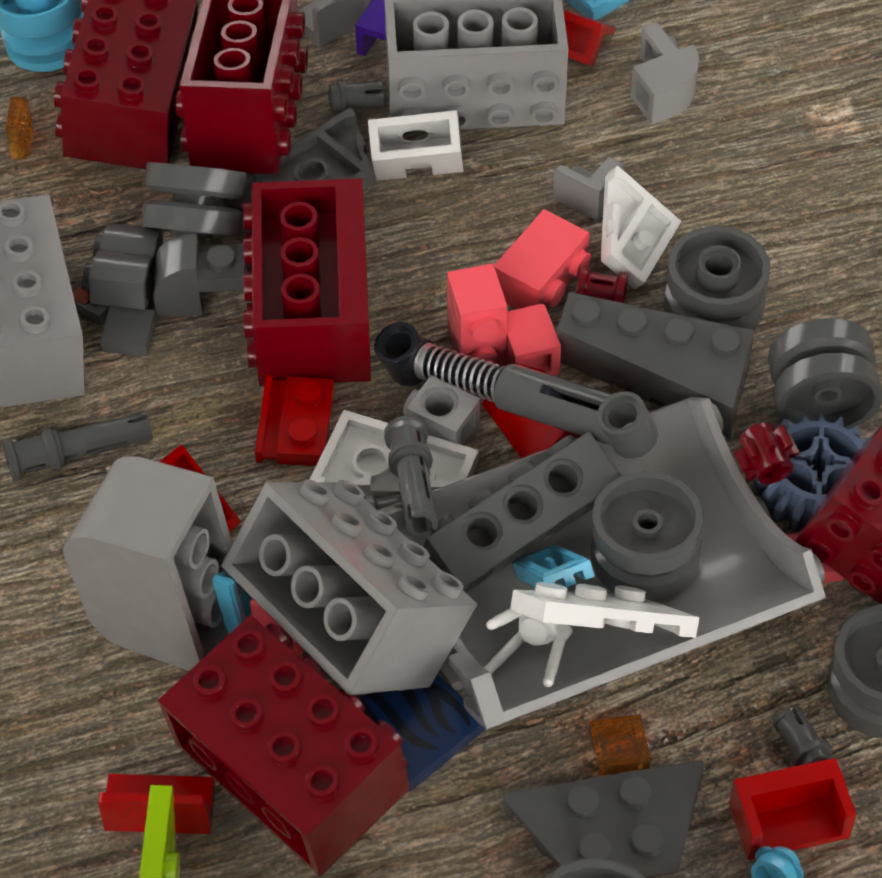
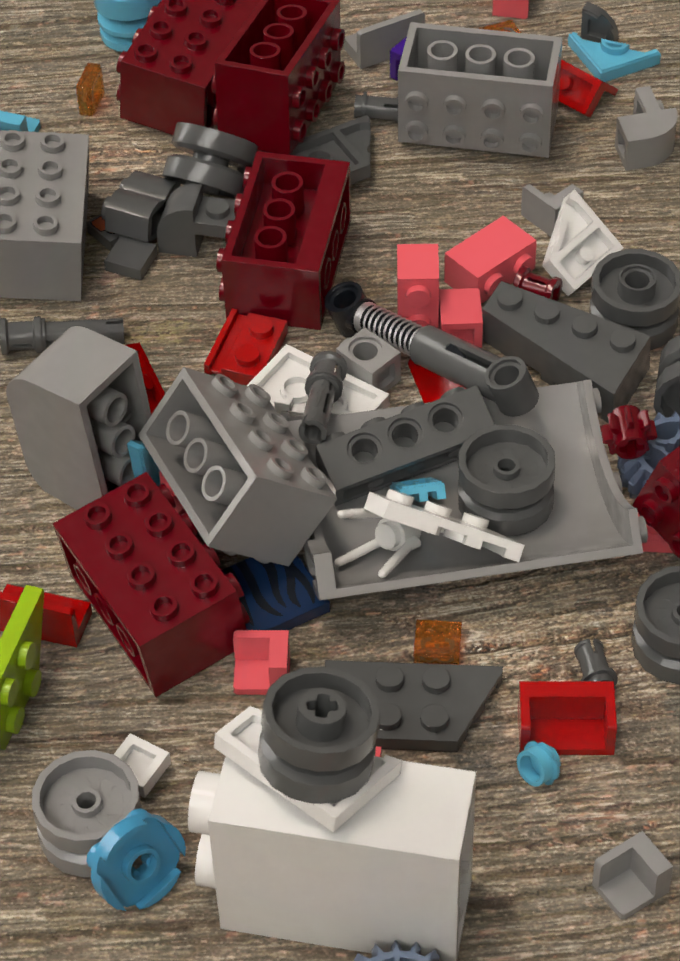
camera: 15 degrees right, 5 degrees down
(394, 155) = (391, 157): white brick -> none
(433, 812) = (259, 659): none -> coral panel

